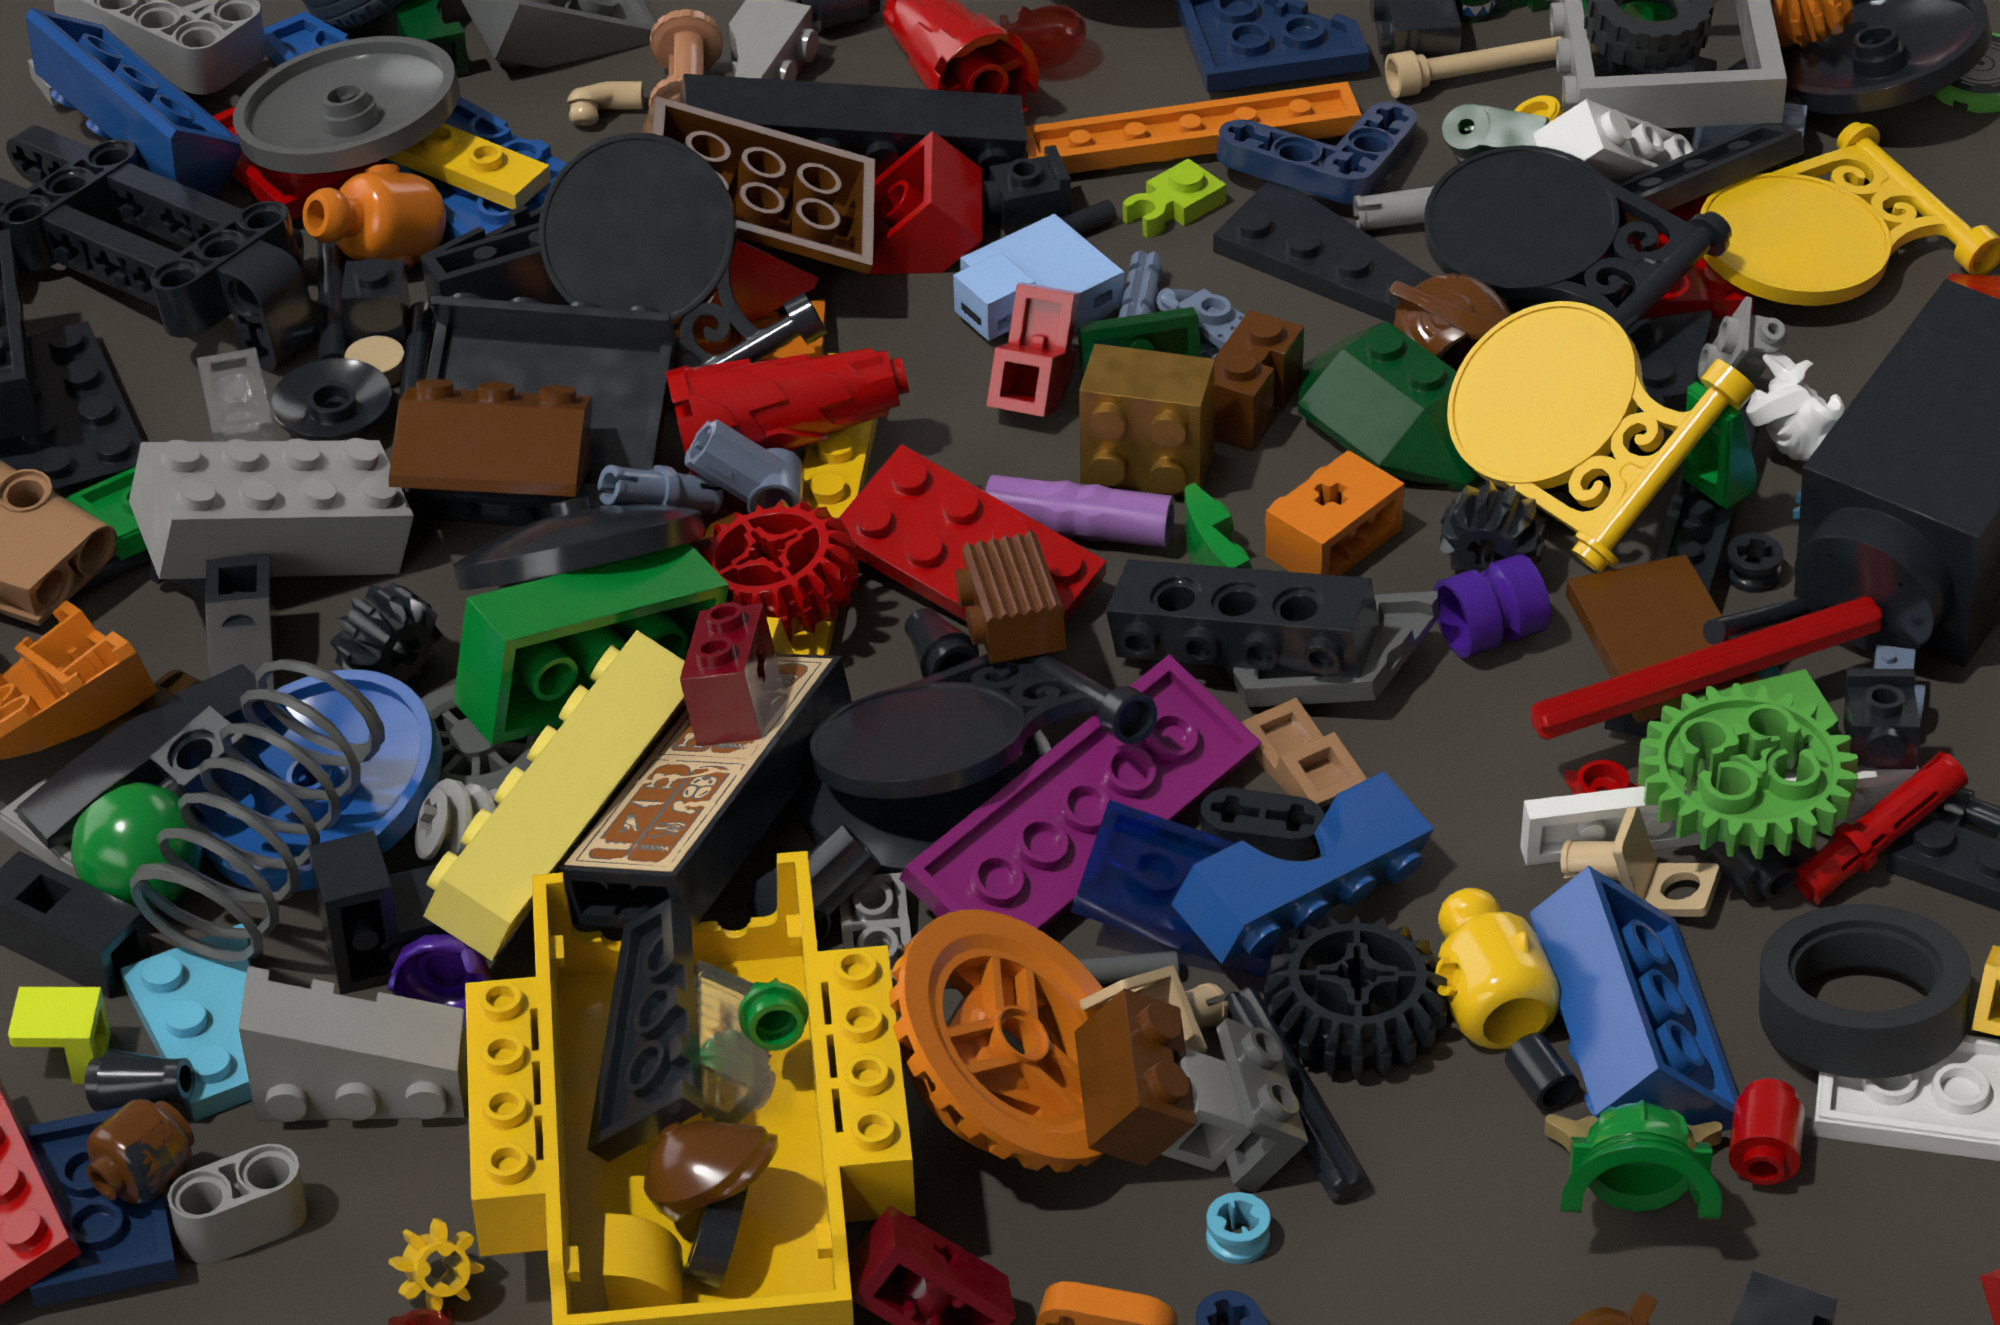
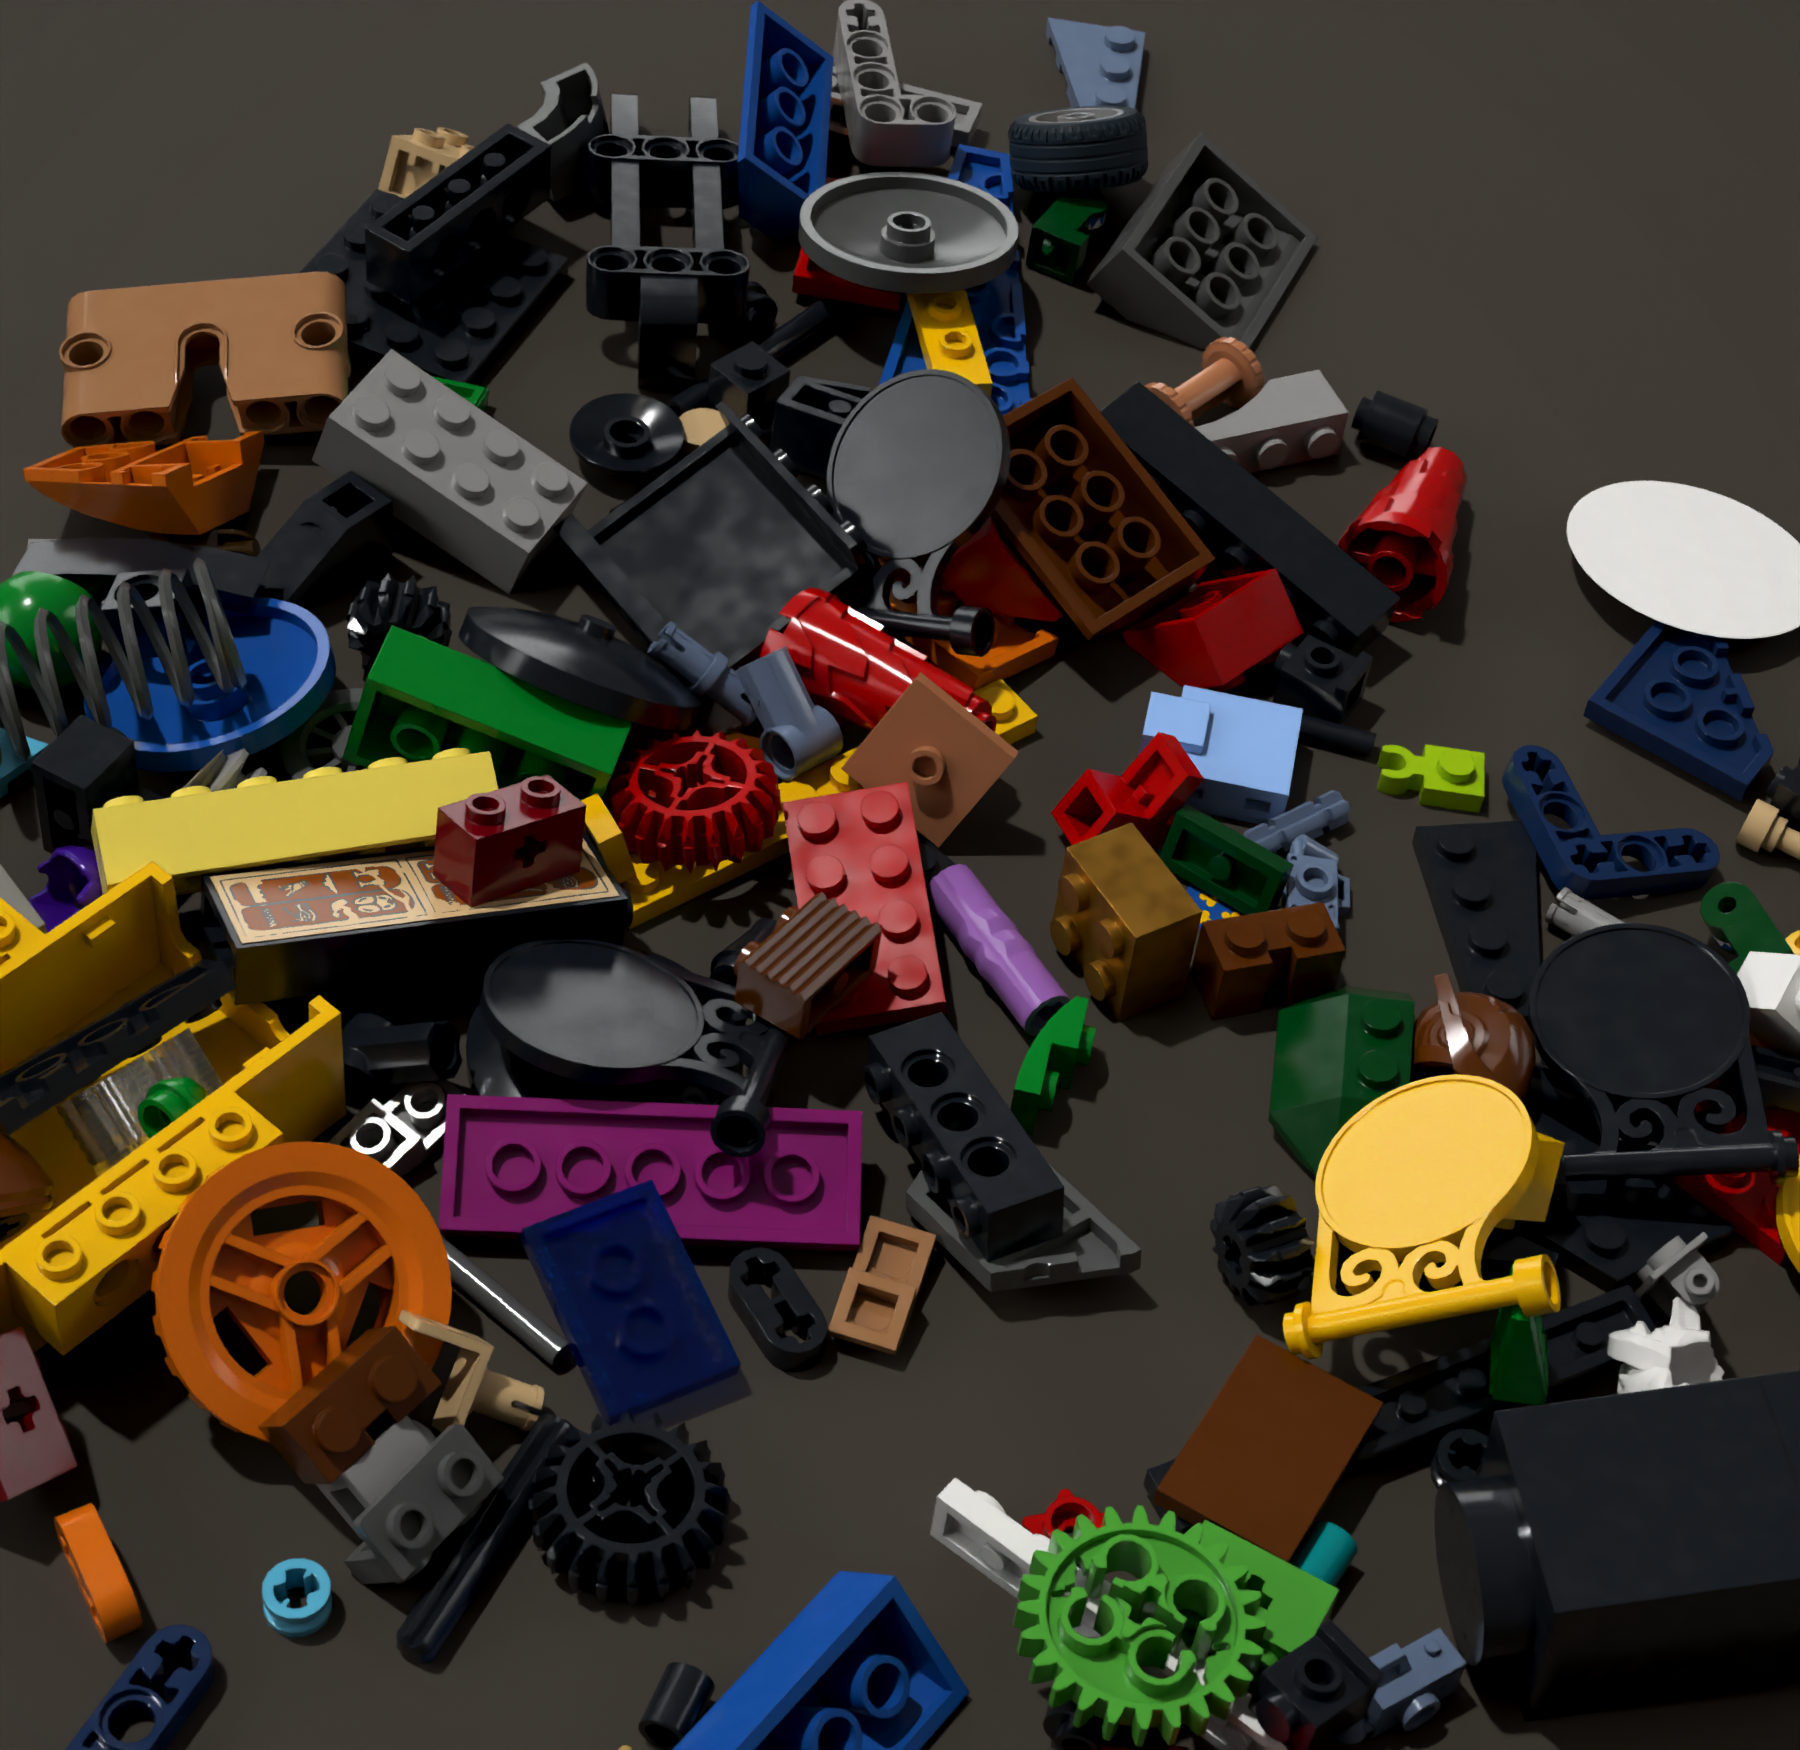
camera: 40 degrees right, 5 degrees up
(236, 396) = (574, 380): clear plate -> none
(379, 215) = (832, 331): orange piece -> none
(492, 439) = (636, 542): reddish brown slope -> none
(607, 95) = (1128, 367): tan arm -> none
(884, 406) = (937, 750): none -> nougat plate
(1050, 32) = (1507, 571): clear red hair -> none
(1191, 128) = (1505, 723): orange plate -> none
(1248, 898) = (630, 1353): blue arch -> none
(1334, 517) = (1172, 1124): orange brick -> none
(1493, 605) = (1186, 1302): dark purple wheel -> none
(1494, 971) = (744, 1587): yellow piece -> none
(1635, 867) = (981, 1623): tan bracket -> none
(1705, 667) = (1250, 1511): red axle -> none
(1749, 621) = (1355, 1510): black bar -> none

